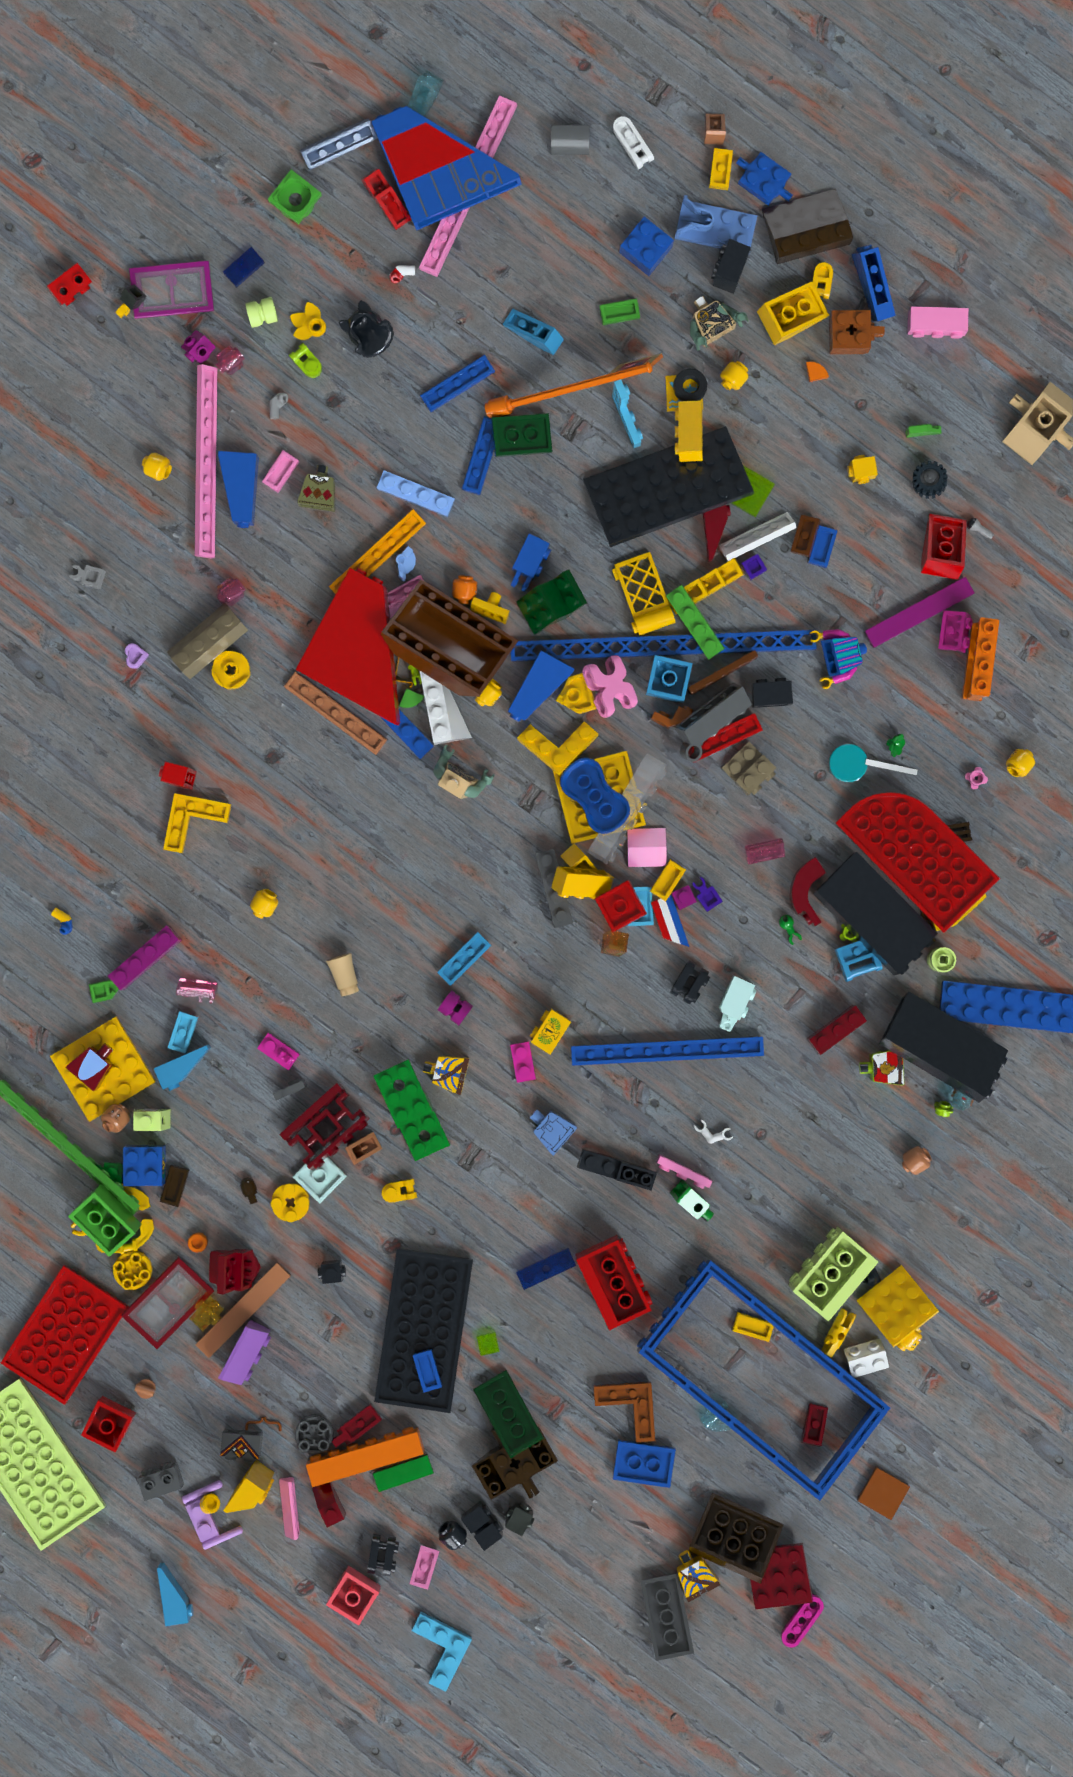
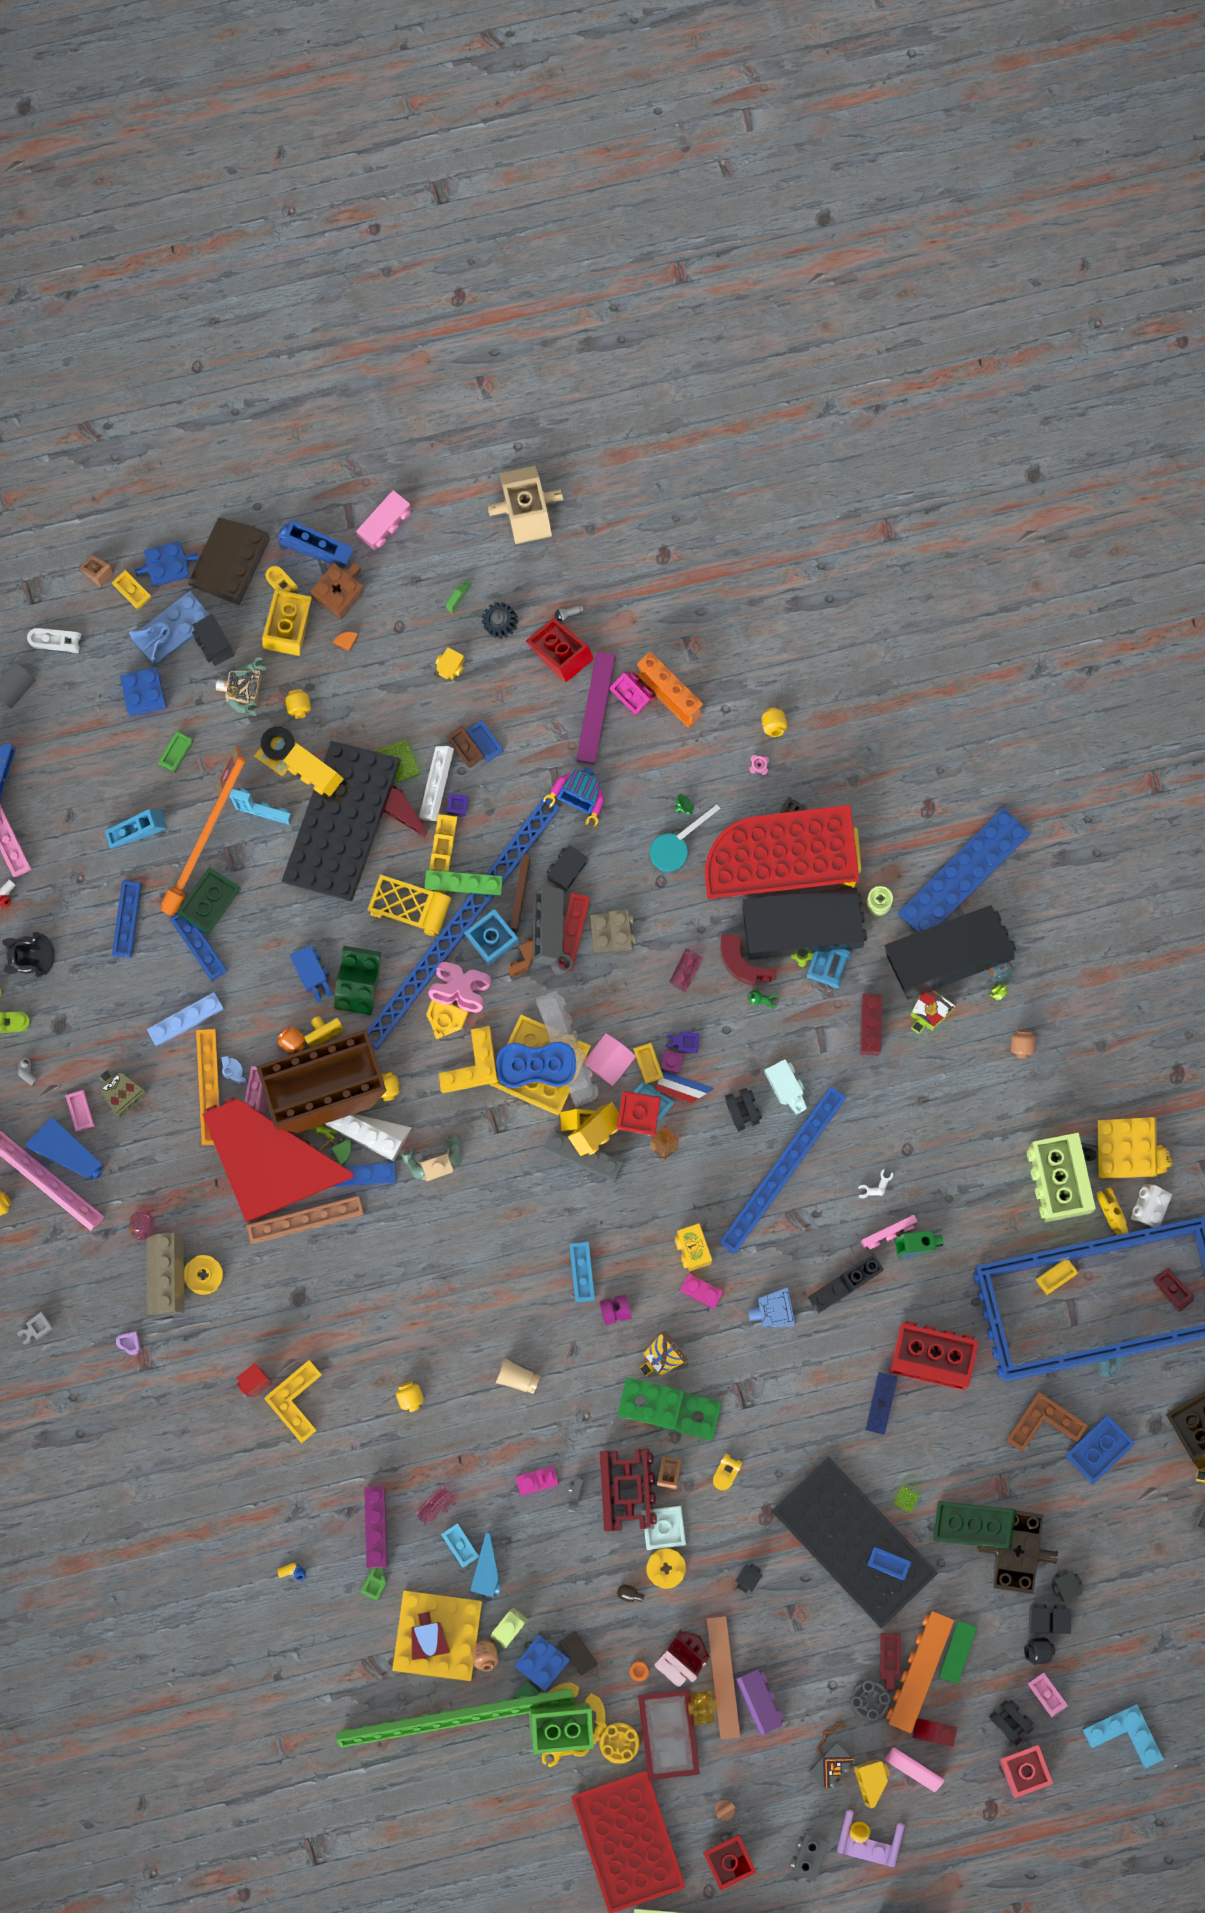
camera: 50 degrees left, 10 degrees down
(539, 684) = (413, 1040): blue slope -> none

